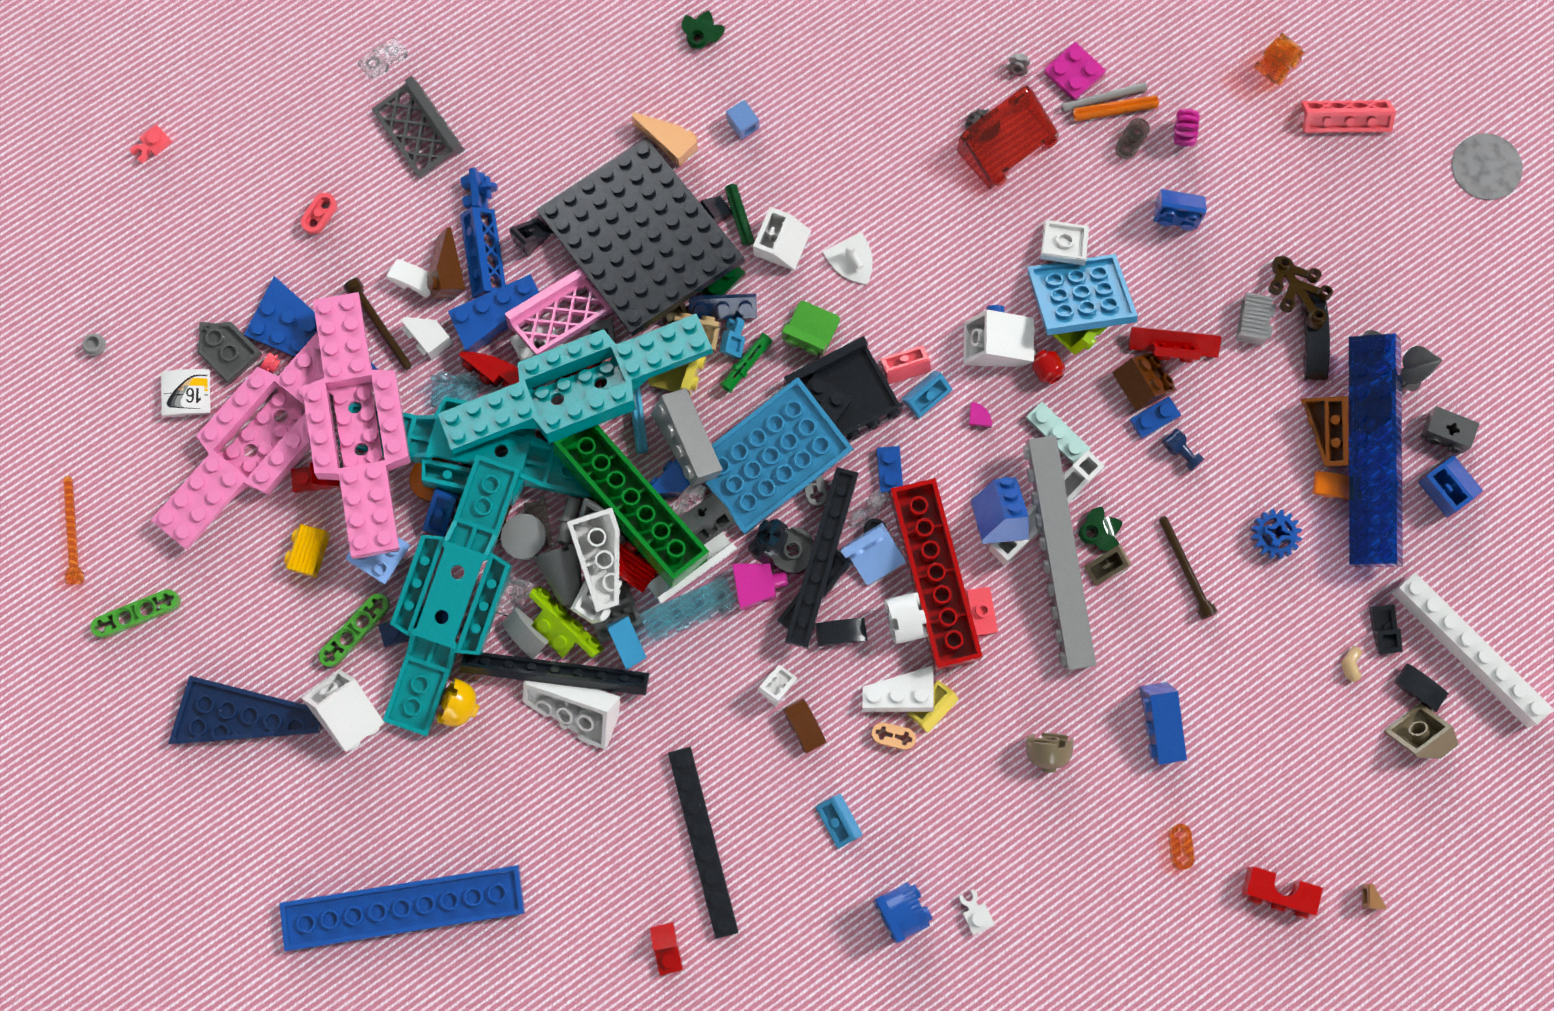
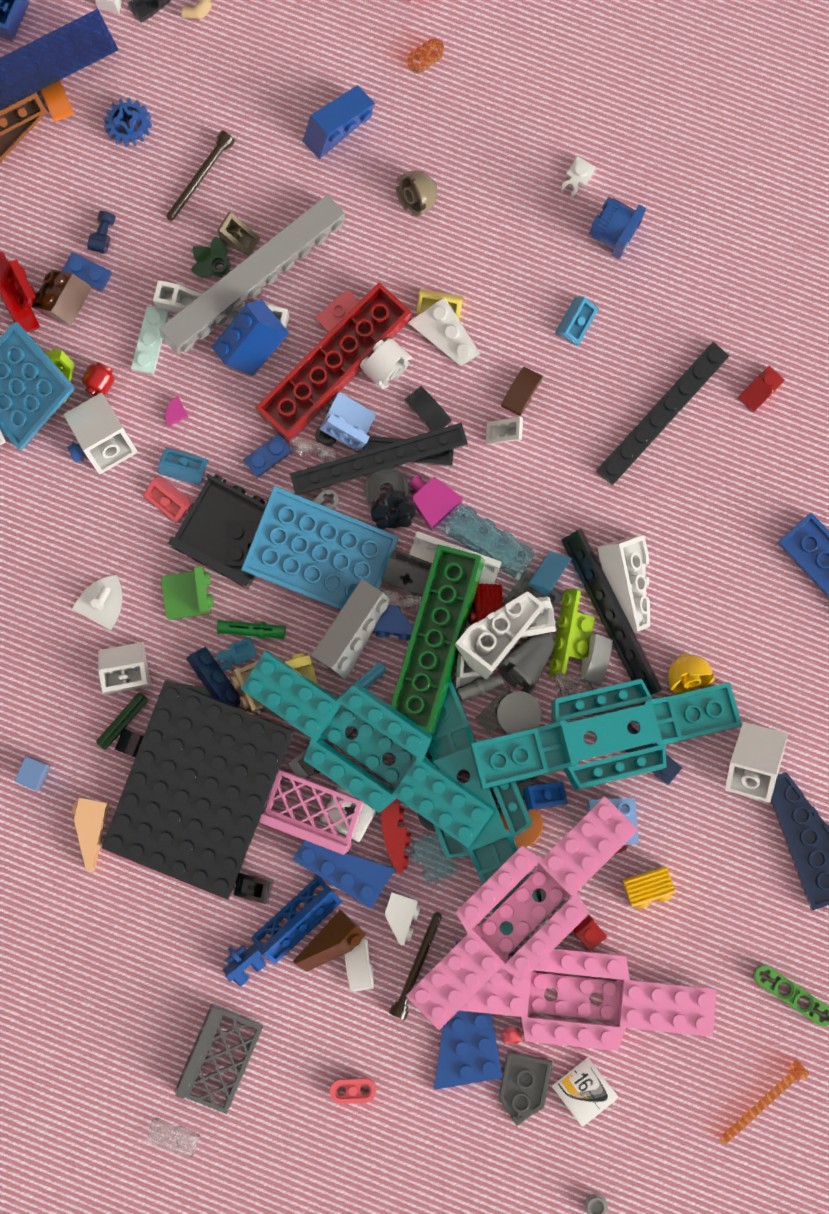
camera: 125 degrees left, 5 degrees up
(352, 628) = (685, 799): bright green beam -> none
(895, 730) = (488, 317): light nougat beam -> none

